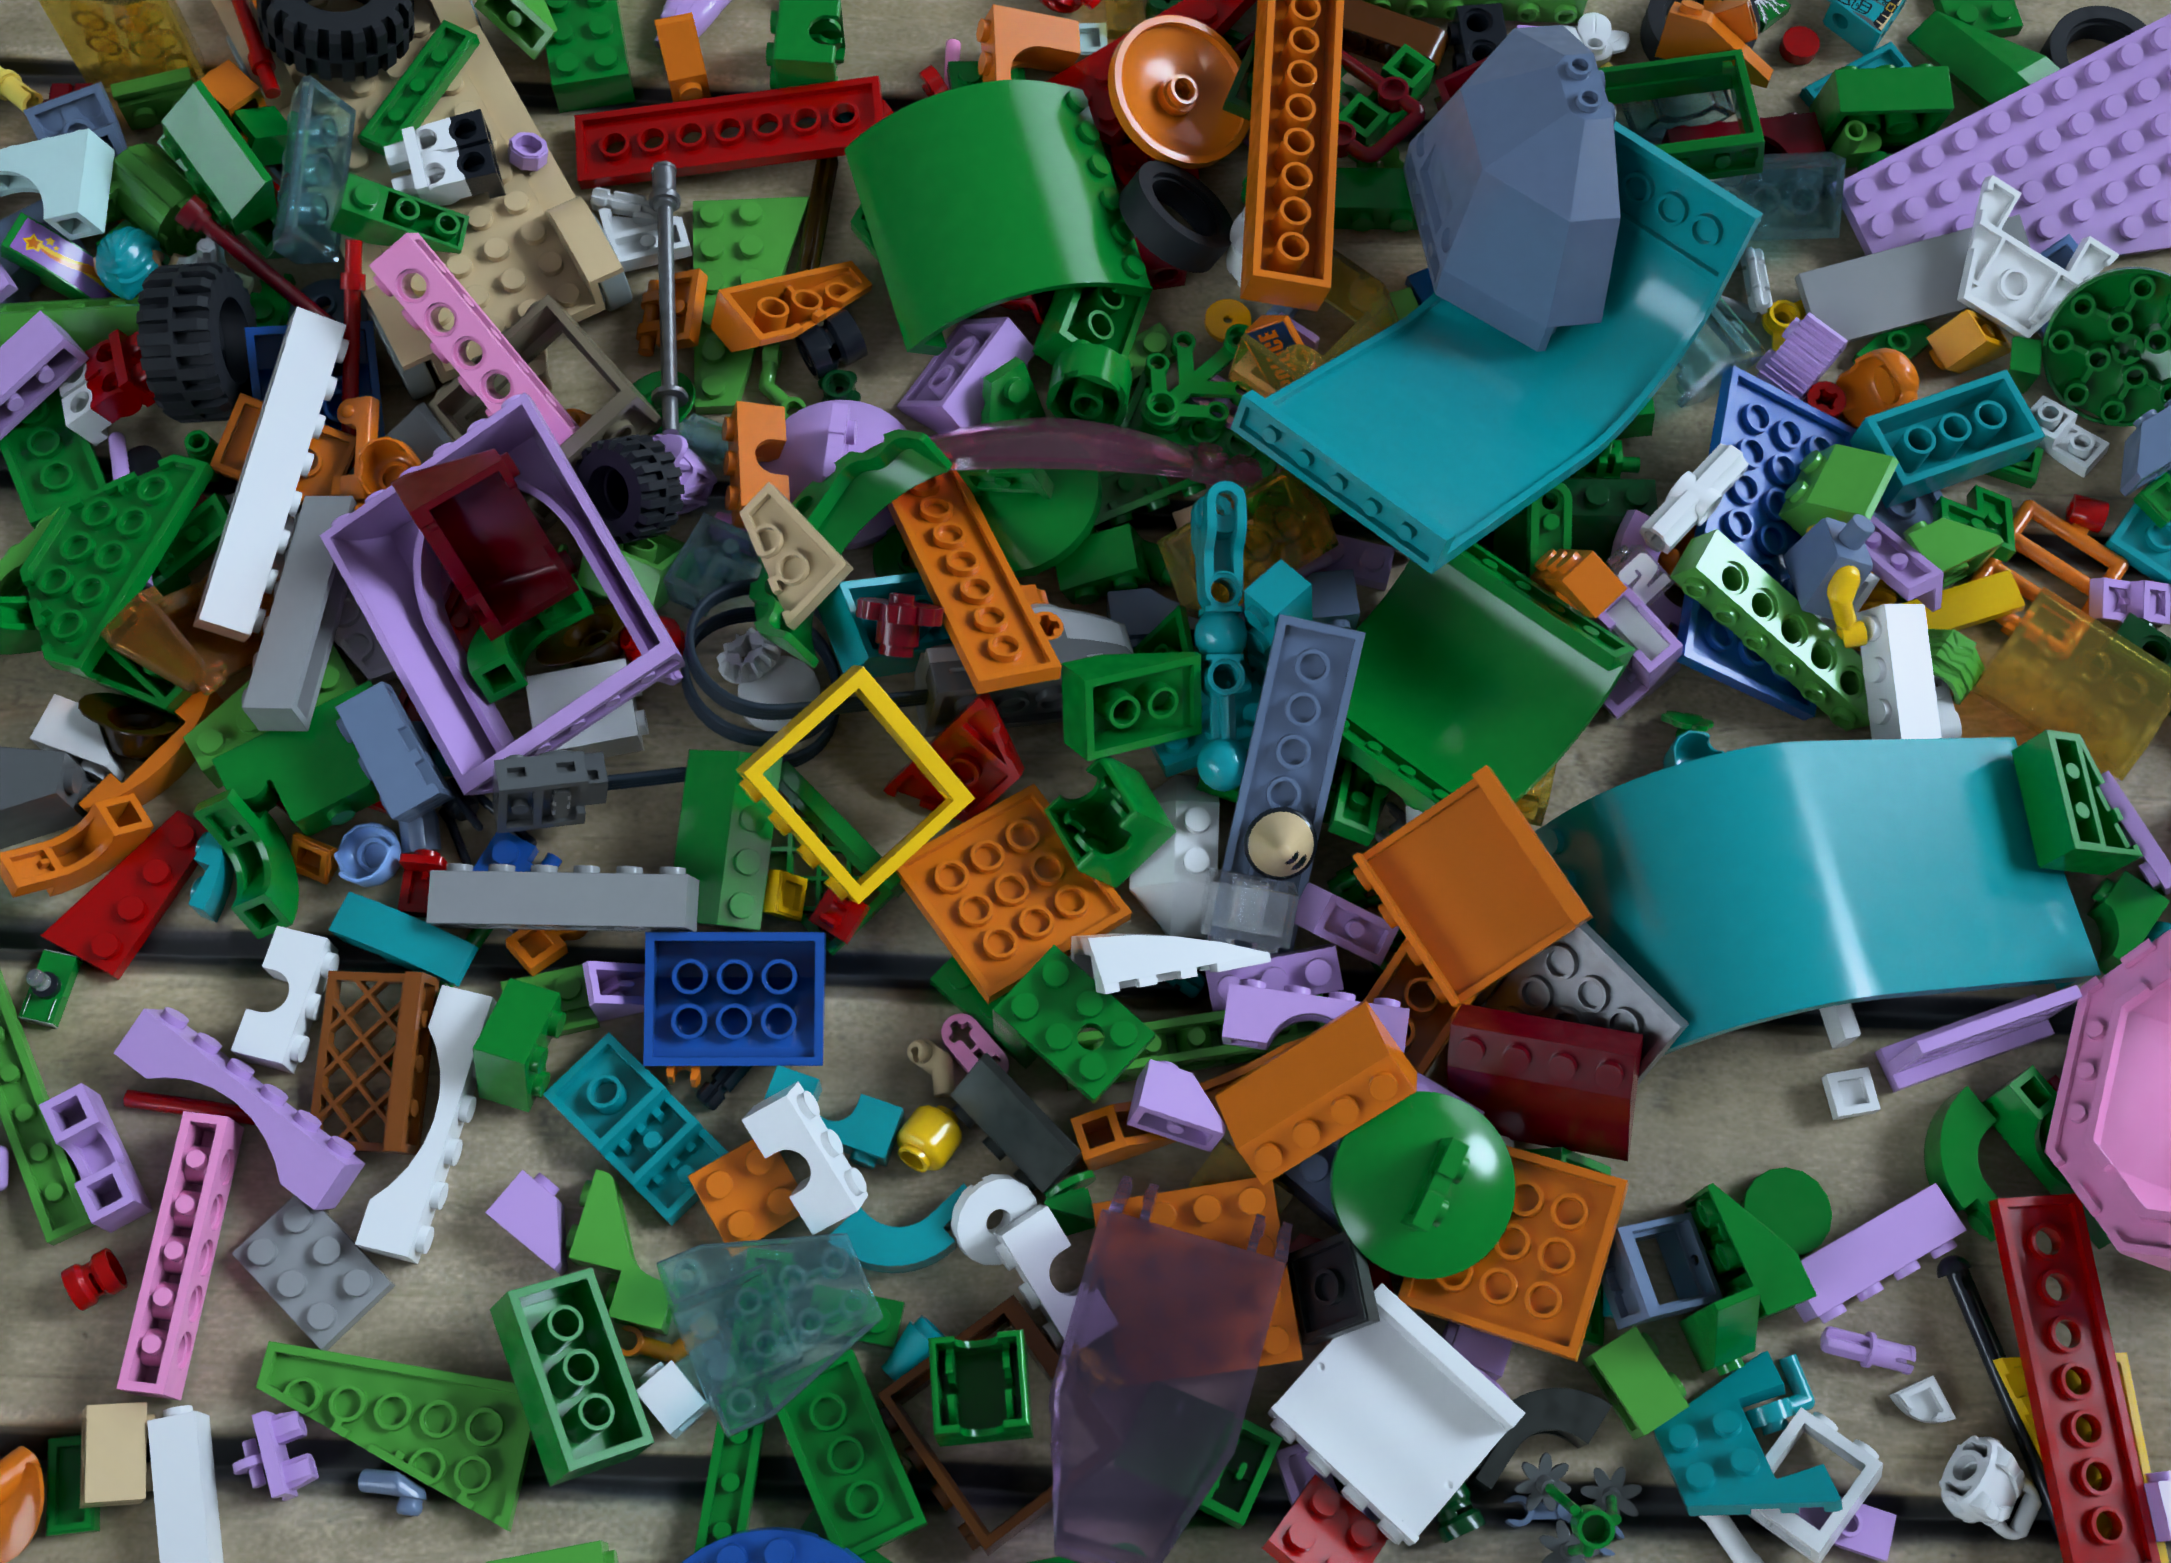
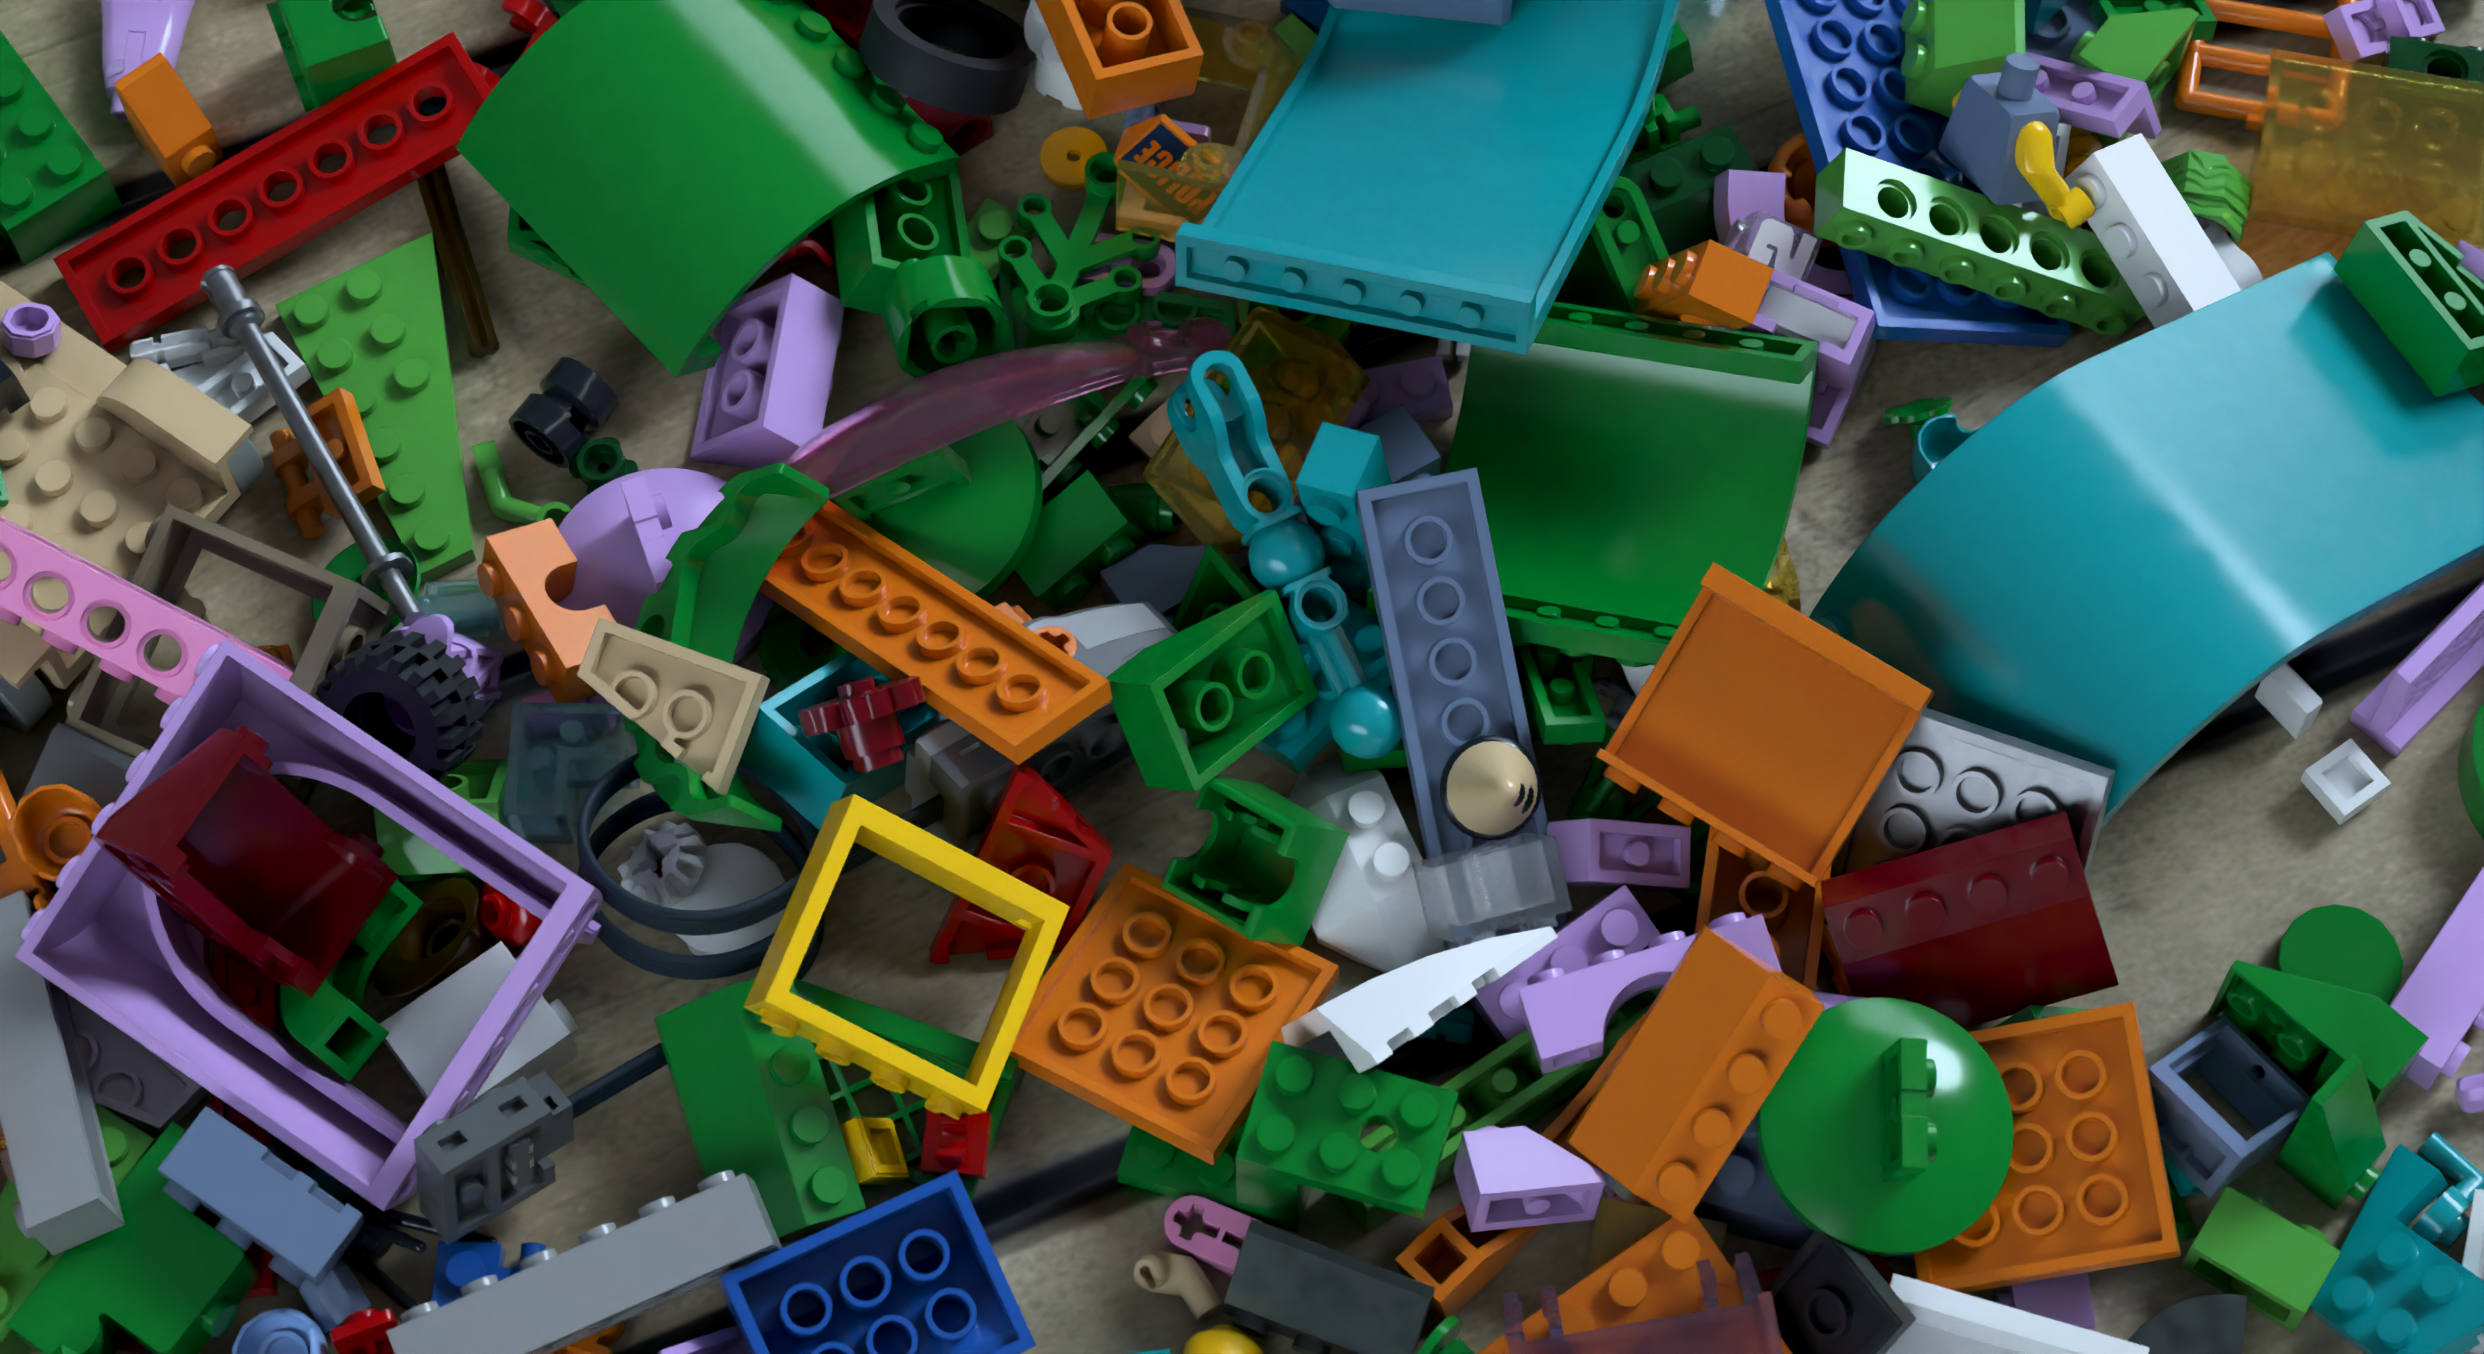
camera: 20 degrees left, 5 degrees down
(784, 305) = (478, 388): orange wedge -> none
(1010, 394) = (843, 373): green wing -> none
(1694, 498) = (1795, 124): white piece -> none
(1976, 602) = (2201, 104): yellow tile -> none

